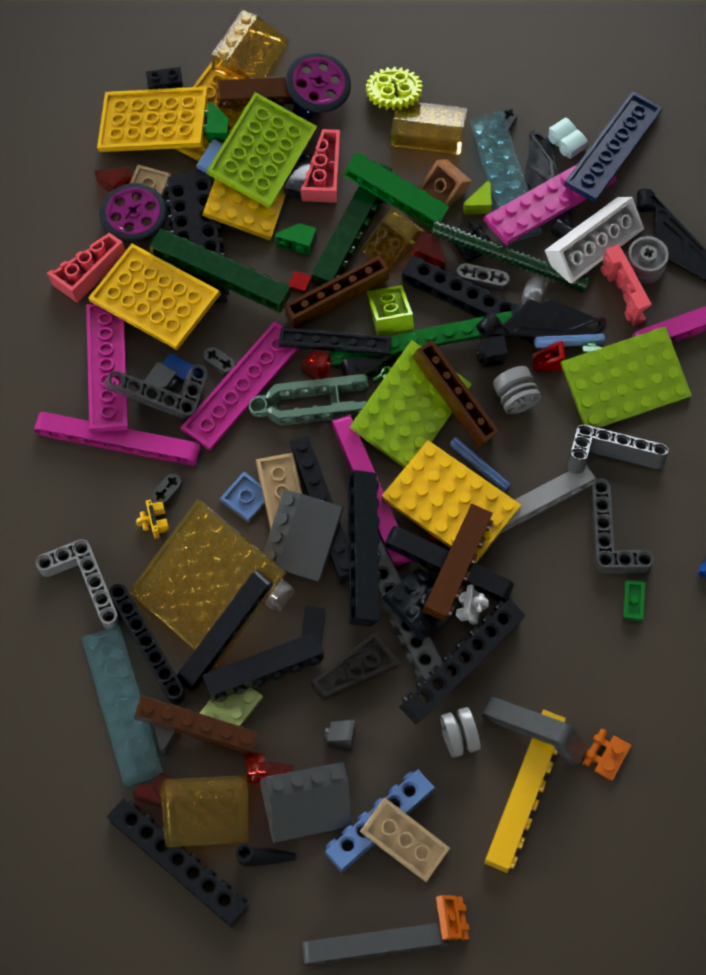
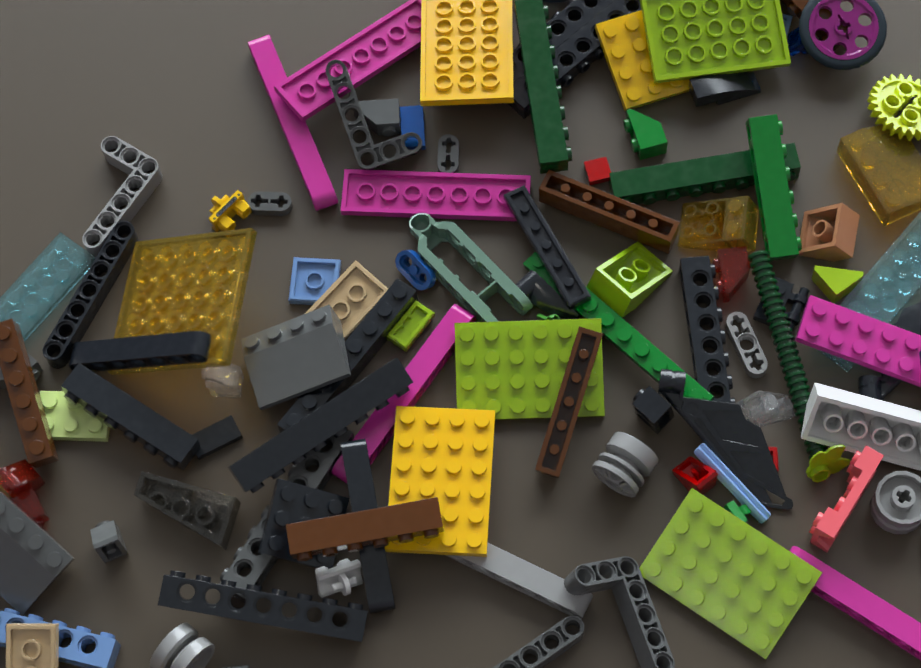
camera: 60 degrees right, 0 degrees up
(288, 431) = (416, 271): none -> blue plate
(316, 365) = (507, 249): clear red slope -> none
(323, 175) = (730, 109): coral wedge -> none
(325, 457) = (410, 326): none -> lime plate
(480, 464) = (514, 485): medium blue axle -> none
(594, 287) = (827, 463): none -> lime plate

